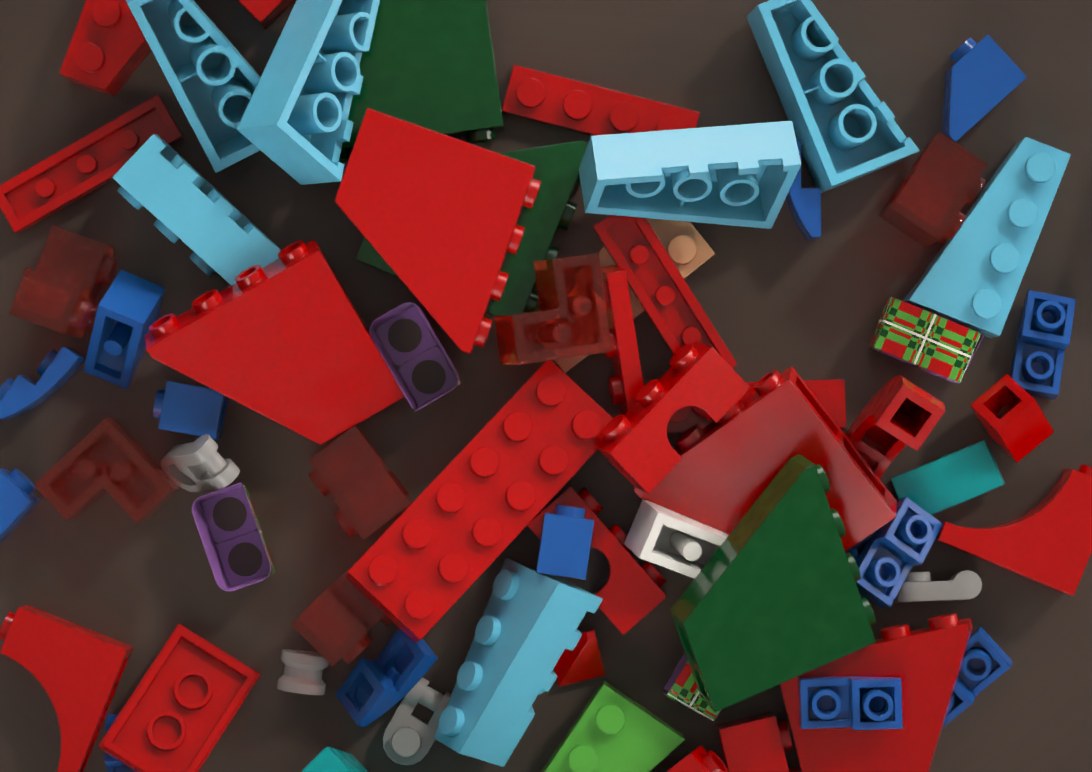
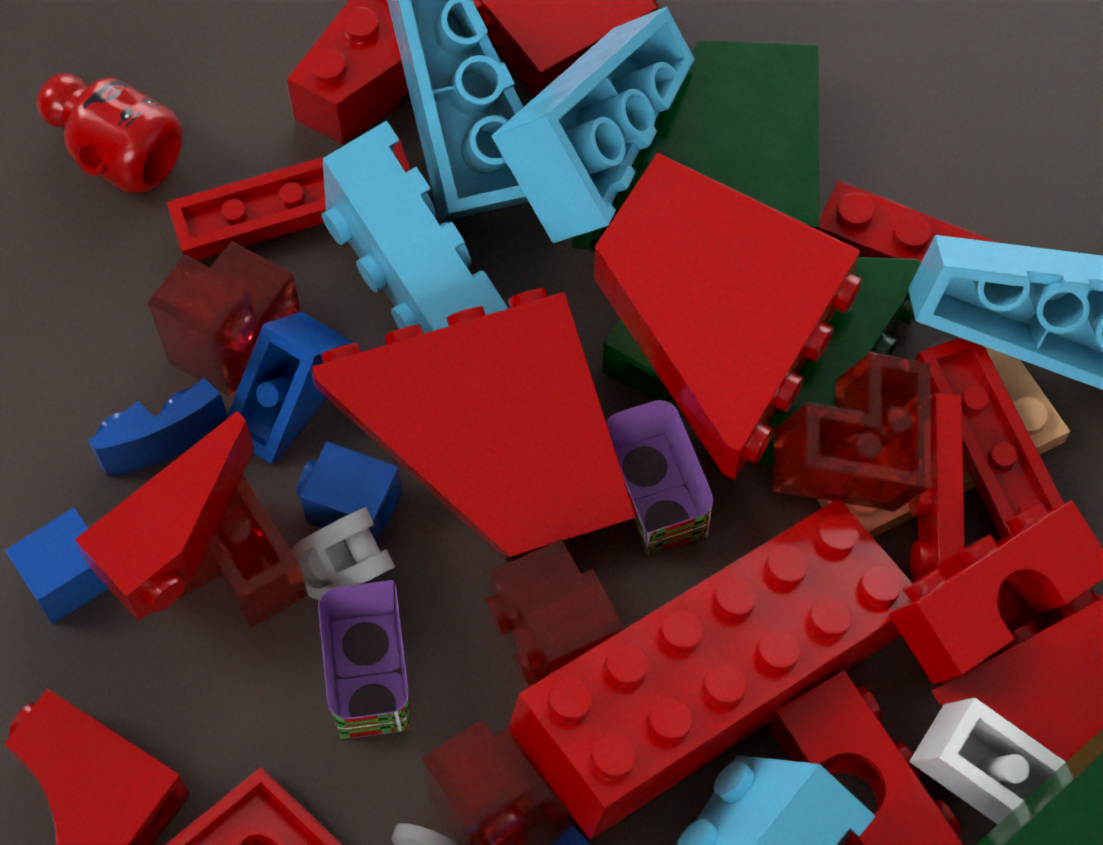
camera: 10 degrees right, 25 degrees down
(72, 490) = (162, 530): none -> red slope
(565, 543) = (833, 726): blue brick -> none

